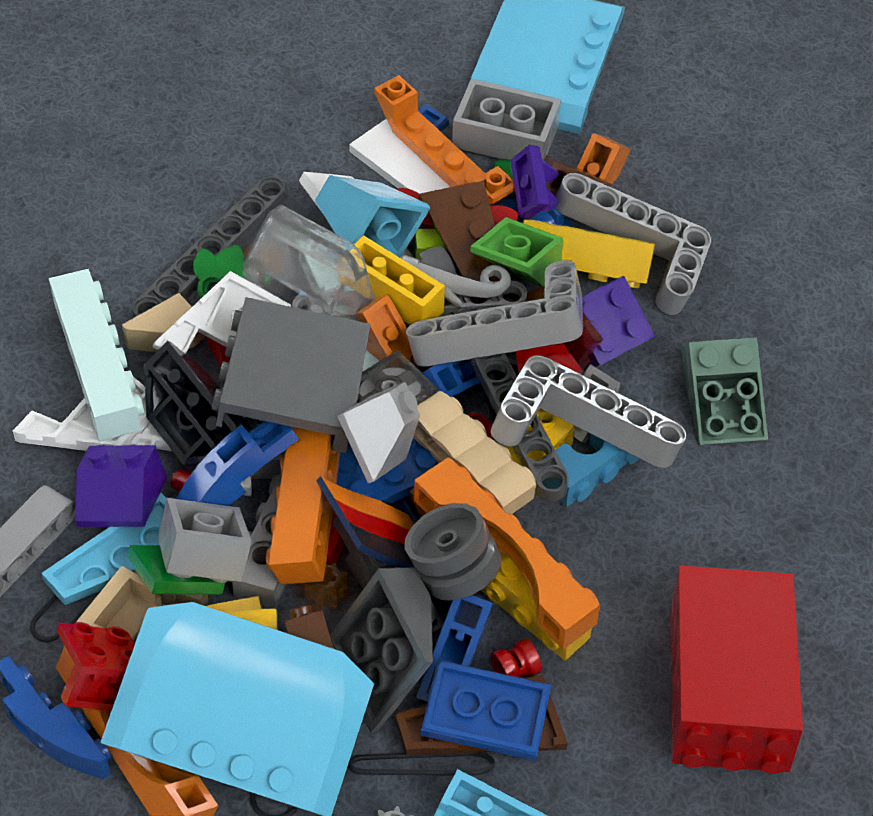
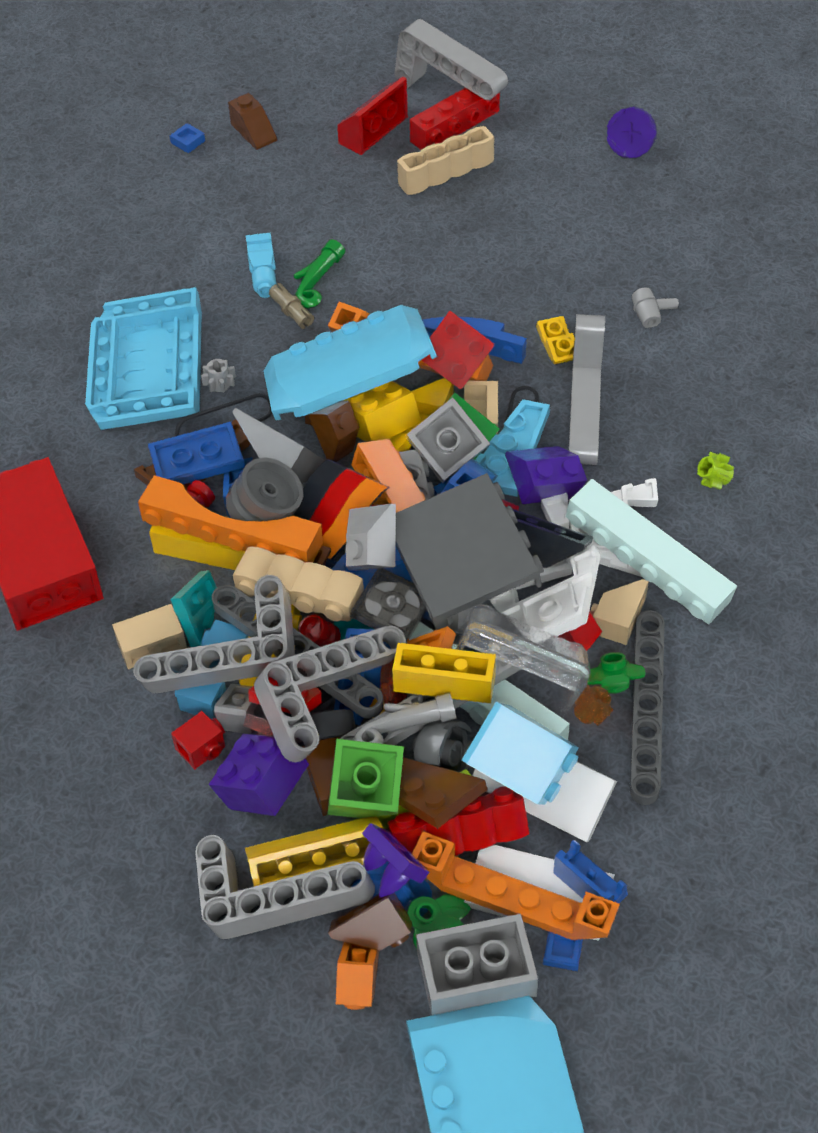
camera: 155 degrees right, 0 degrees up
(375, 136) = (585, 876): none -> blue hinge
(591, 516) = (195, 606): none -> teal wing
(643, 516) = (149, 634): none -> tan panel
(646, 390) = (199, 739): none -> red brick
(725, 390) = (132, 786): sand green slope -> none

